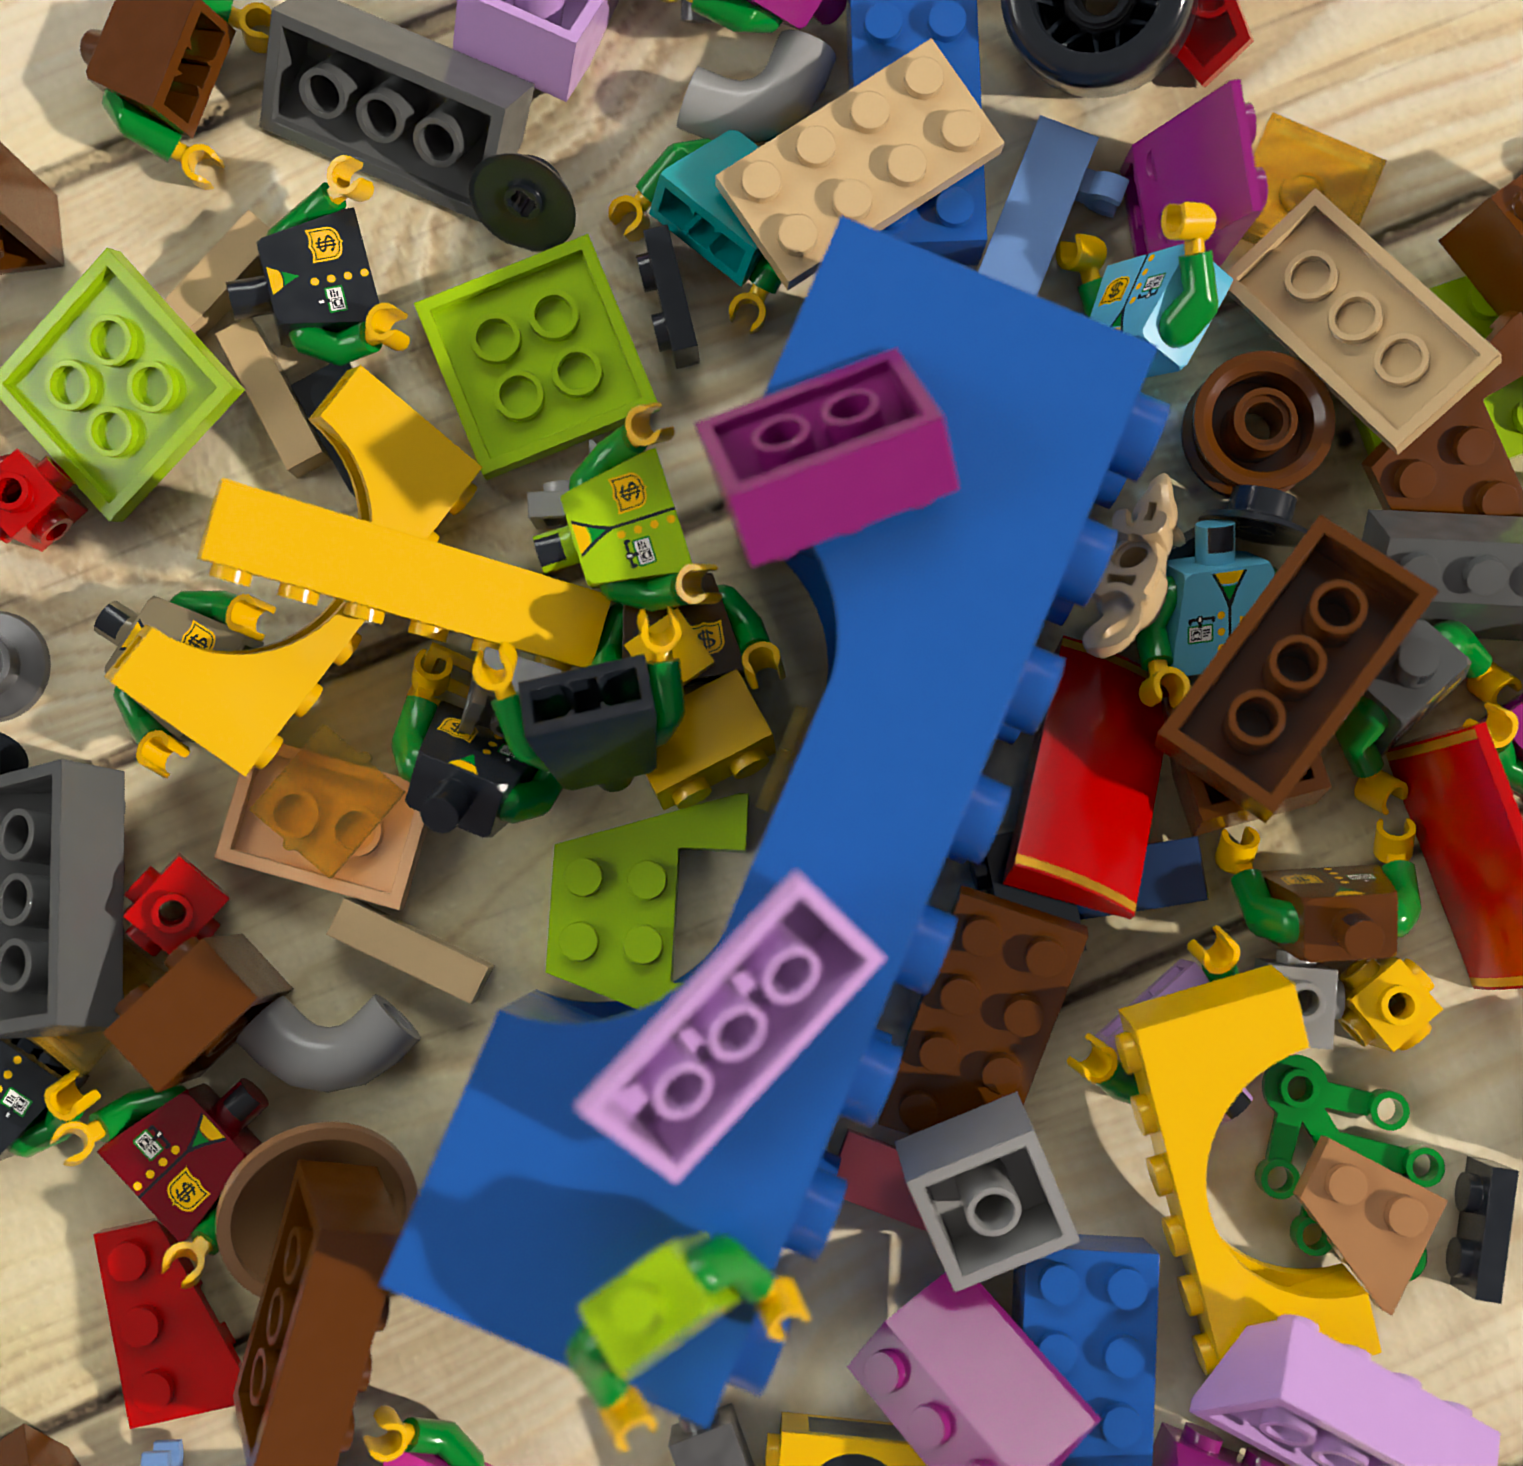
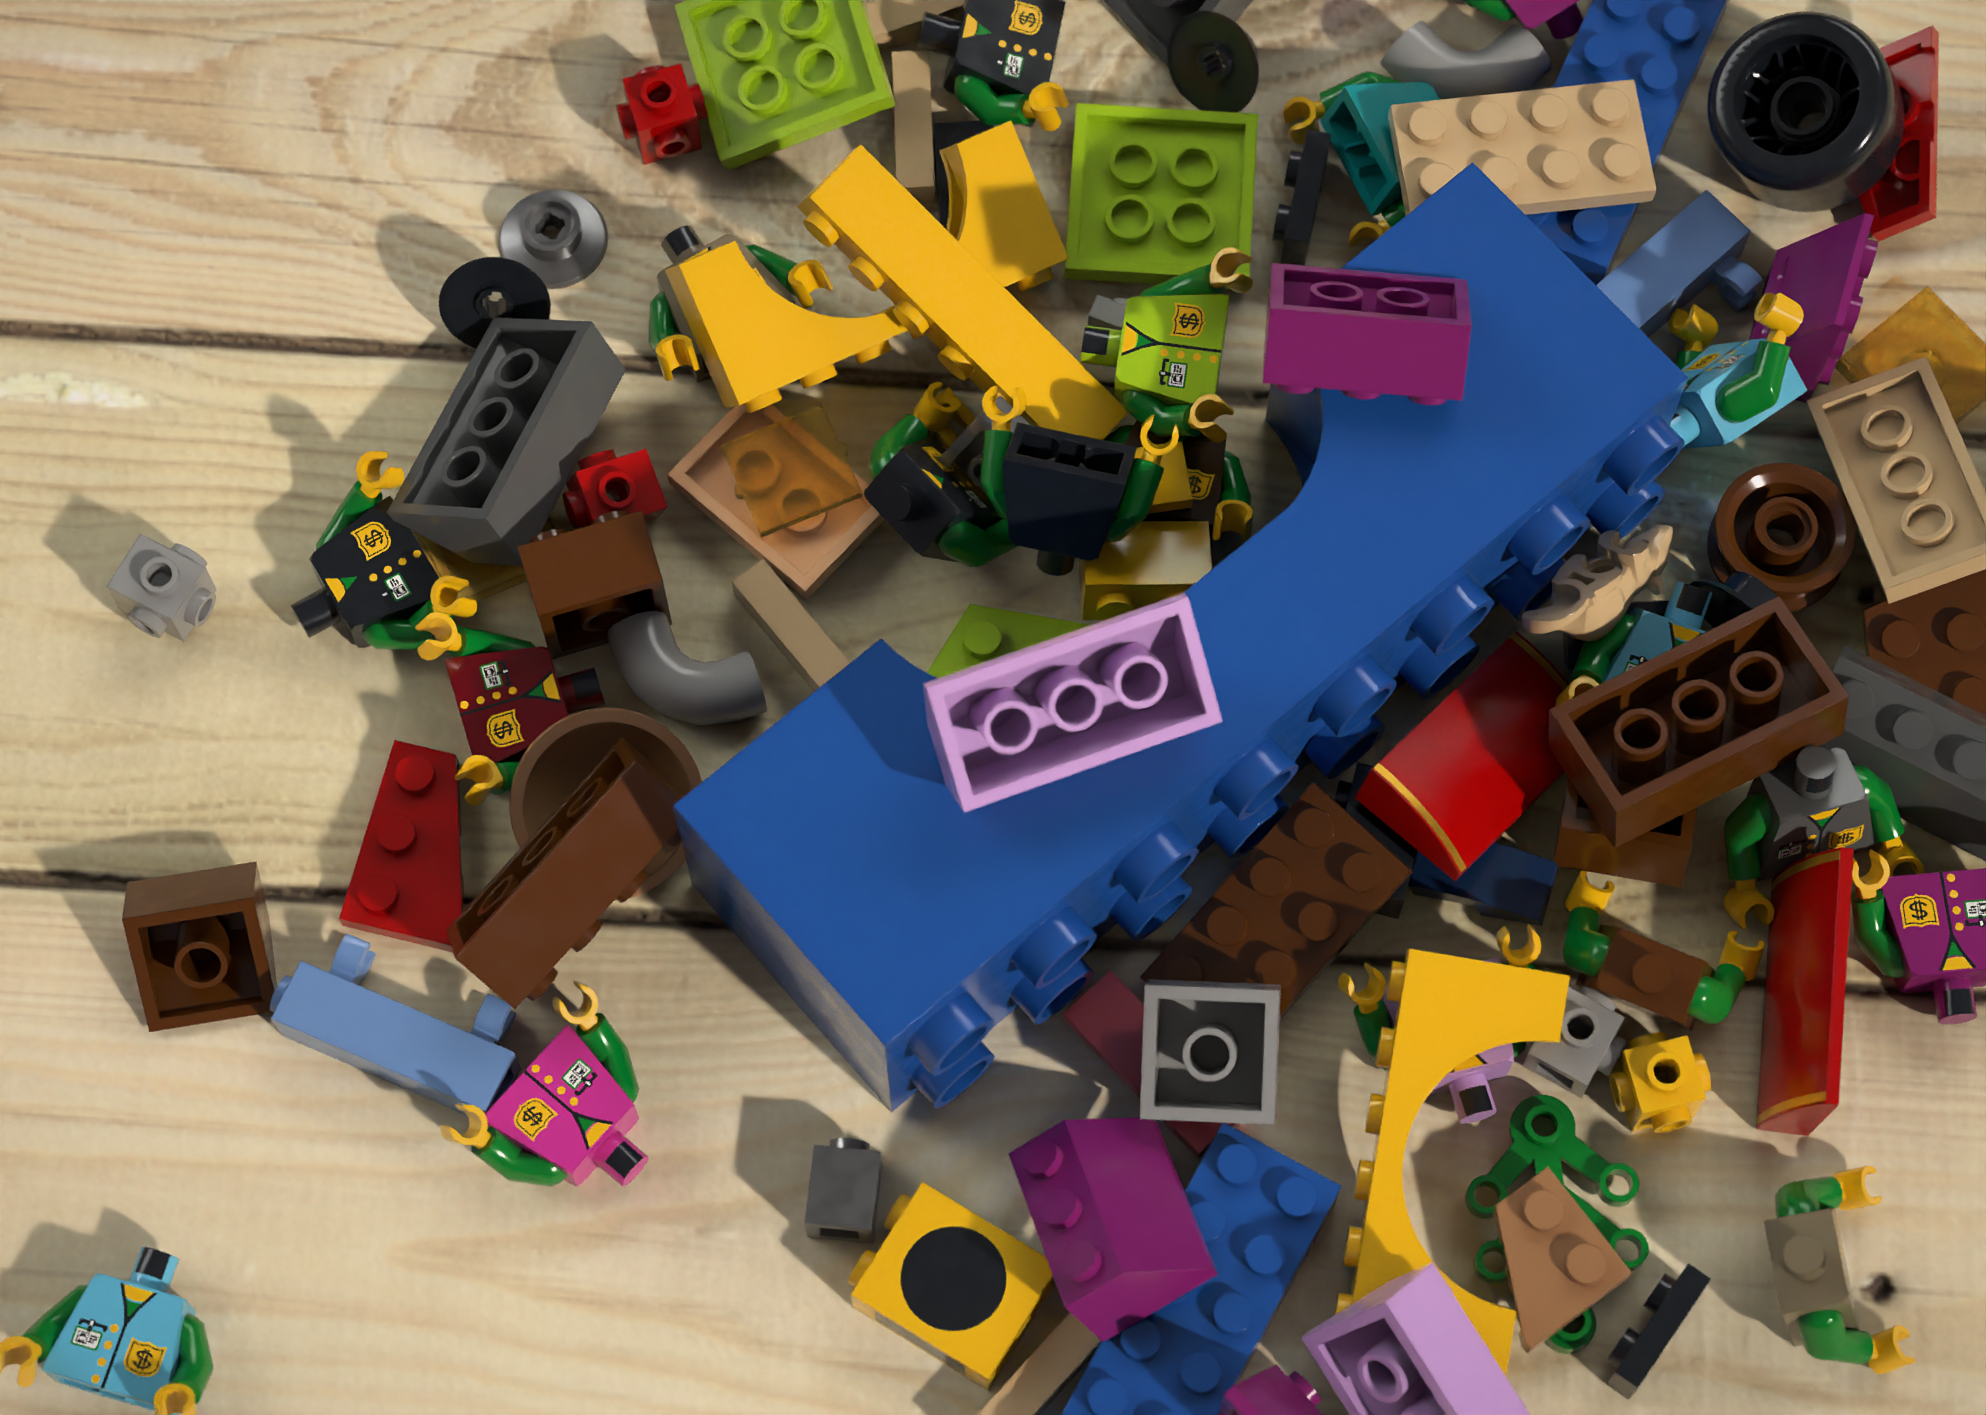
camera: 25 degrees right, 15 degrees down
(661, 1307) = (897, 905): torso -> none

